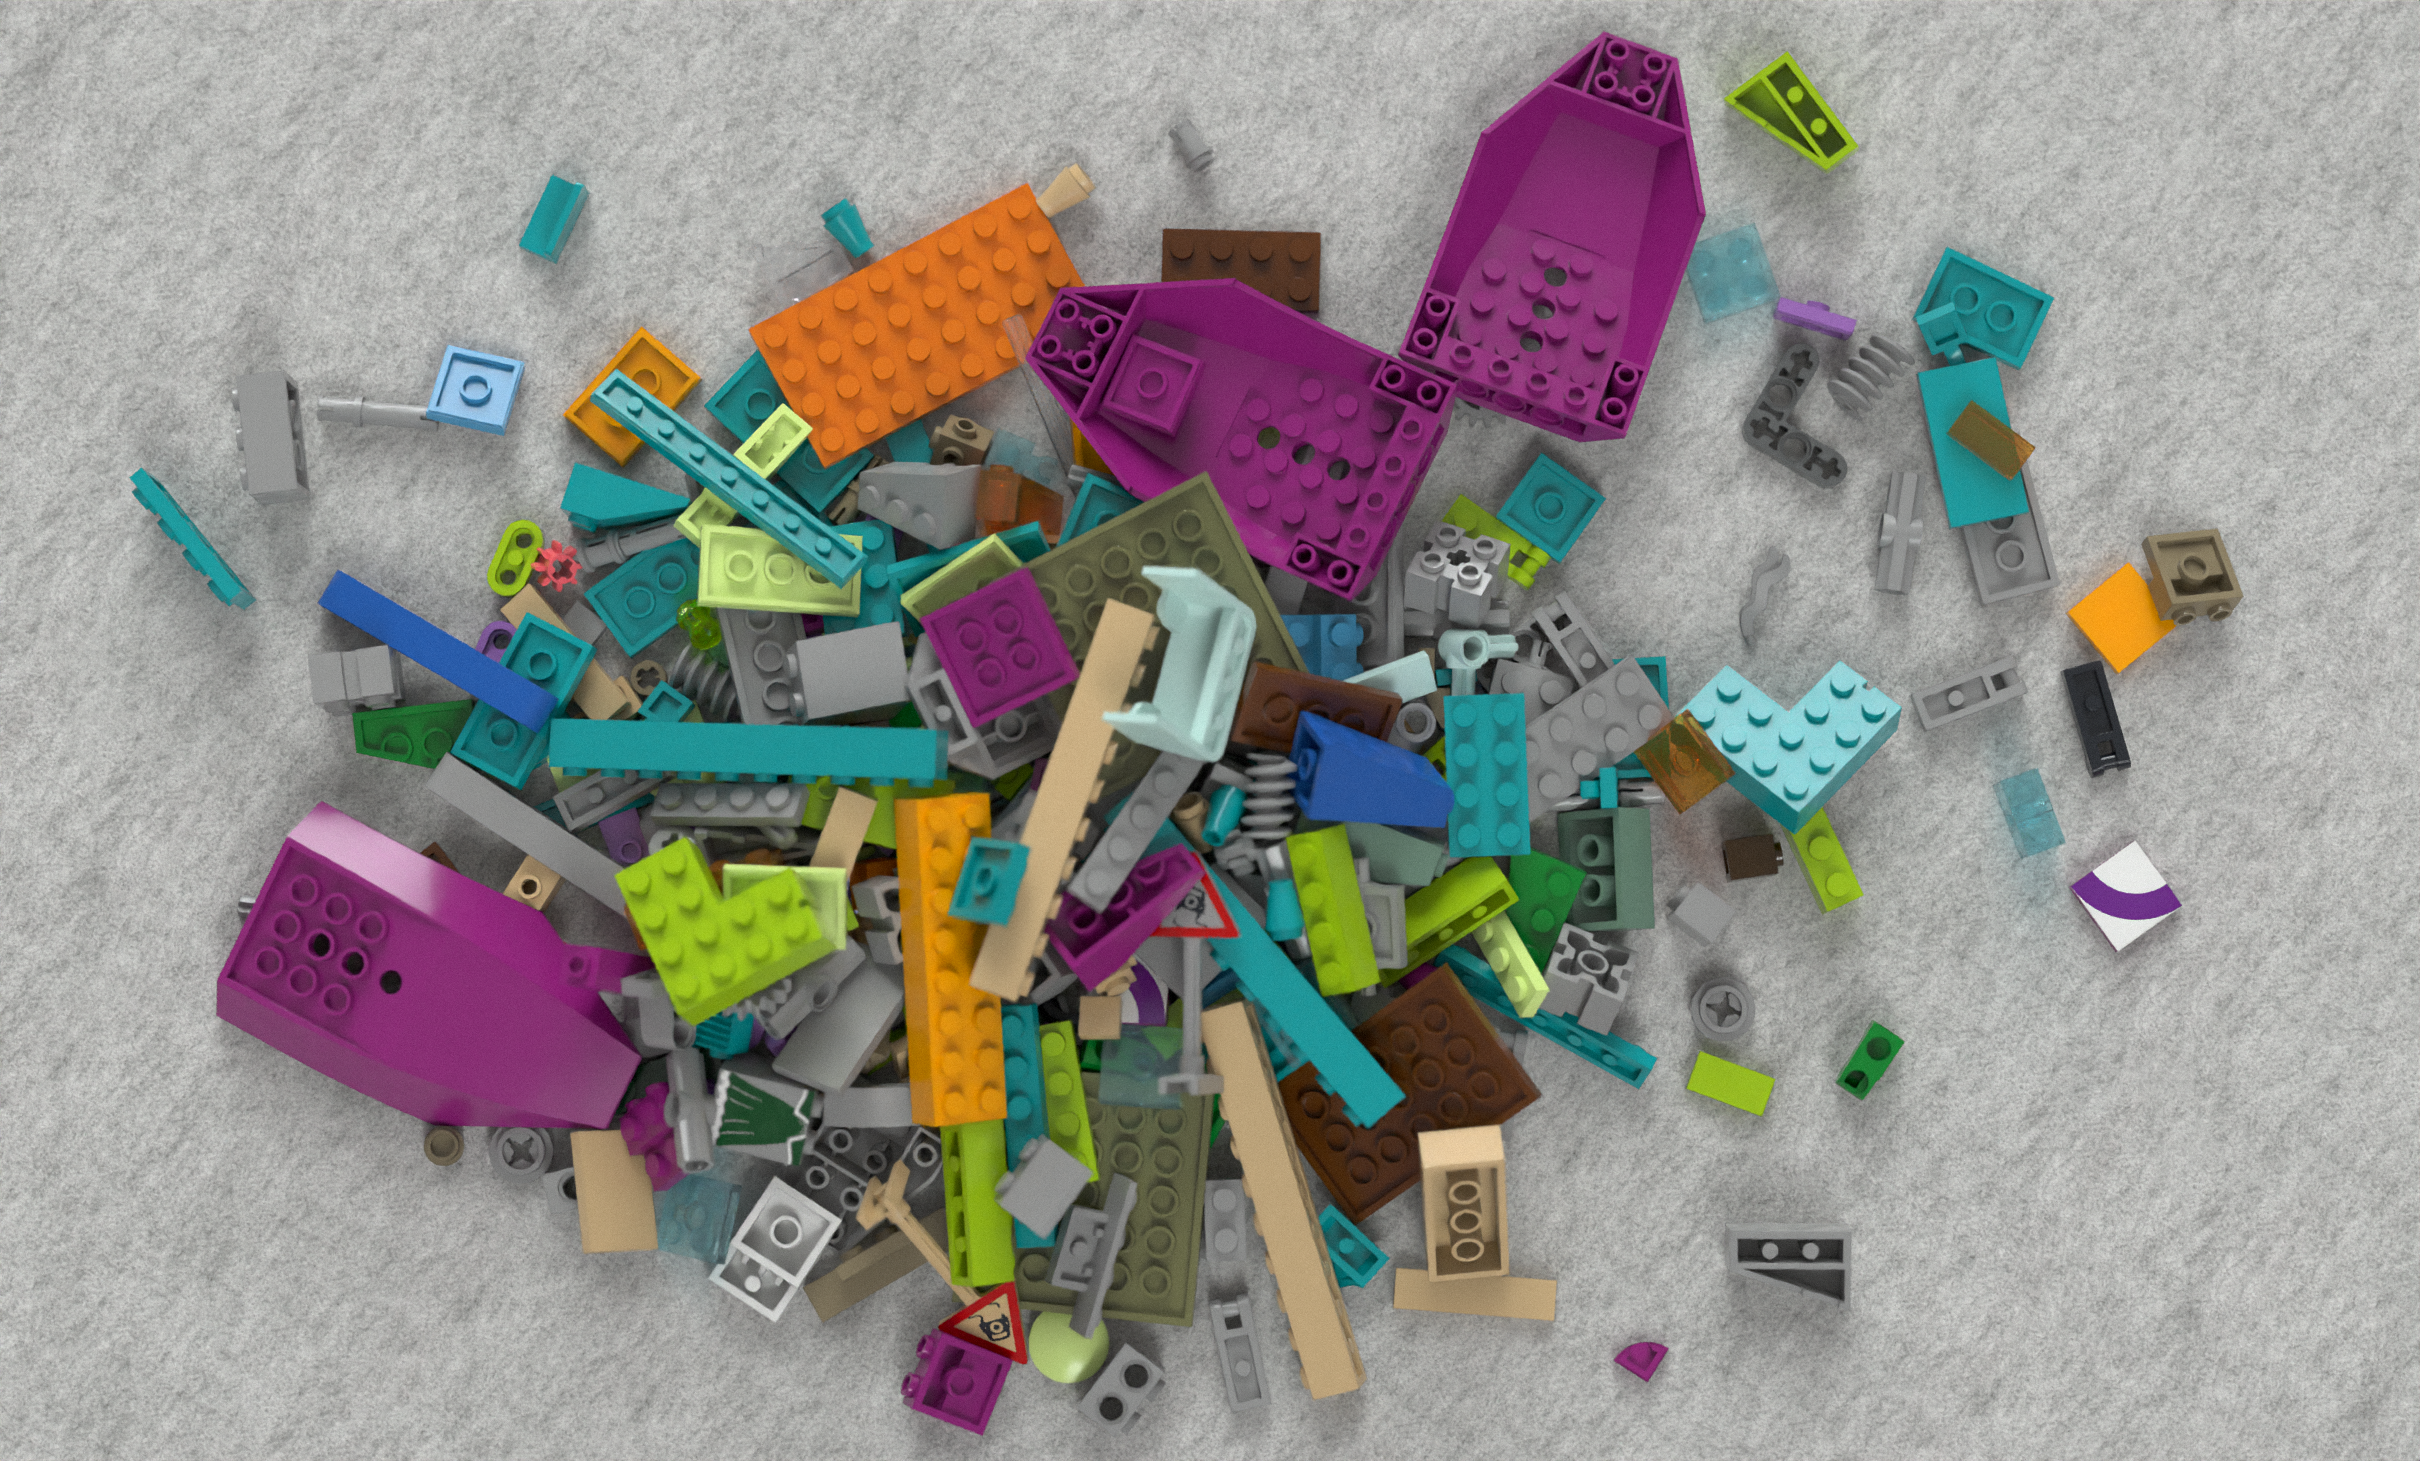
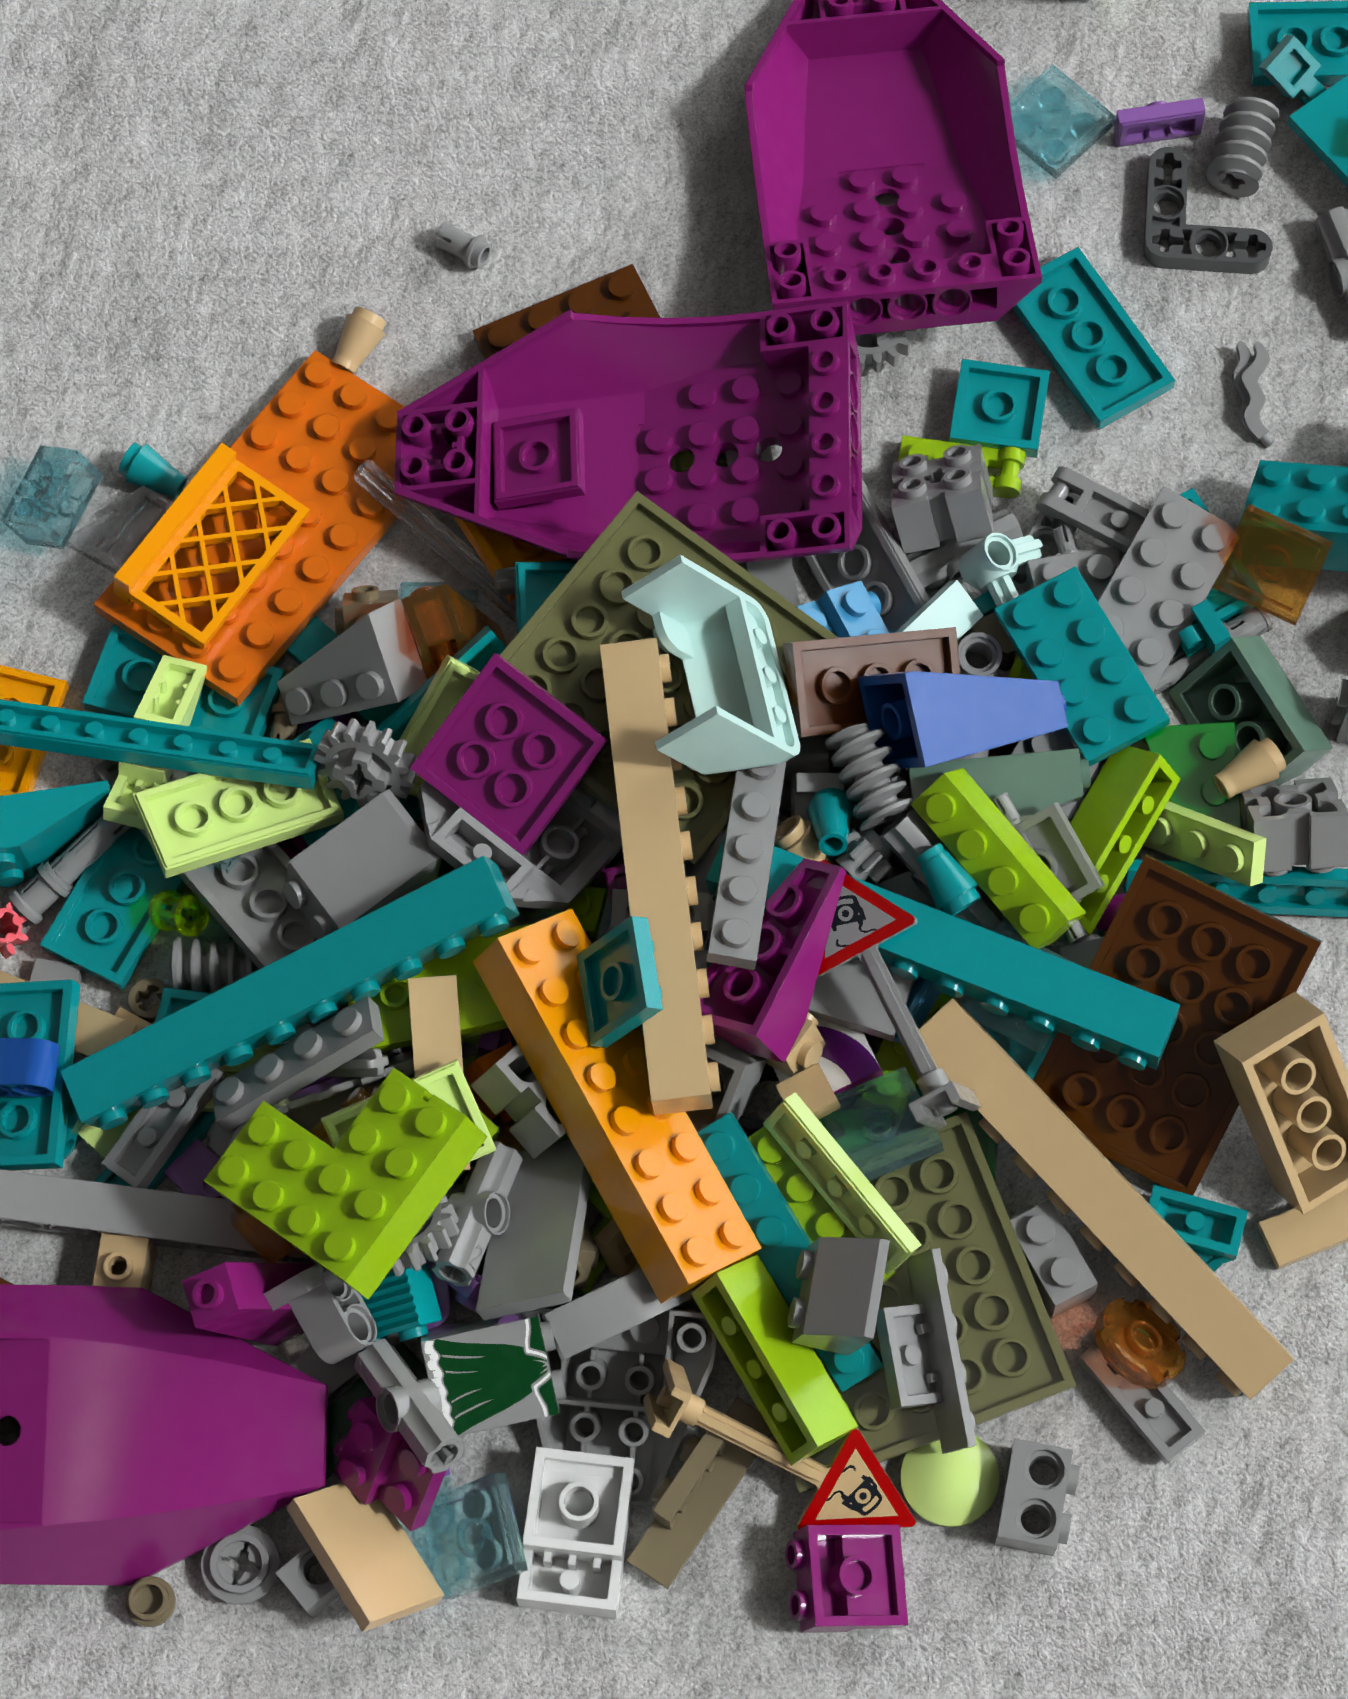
camera: 20 degrees left, 15 degrees down
(757, 214) = (51, 497): none -> clear light blue brick
(841, 302) = (177, 525): none -> light orange fence
(890, 590) = (365, 762): none -> light grey gear
(1088, 1099) = (839, 1179): none -> yellowish green tile
(1254, 1317) = (1139, 1343): none -> clear orange tile
(1575, 920) = (1252, 767): none -> tan cone
(1656, 486) = (1092, 340): none -> teal plate

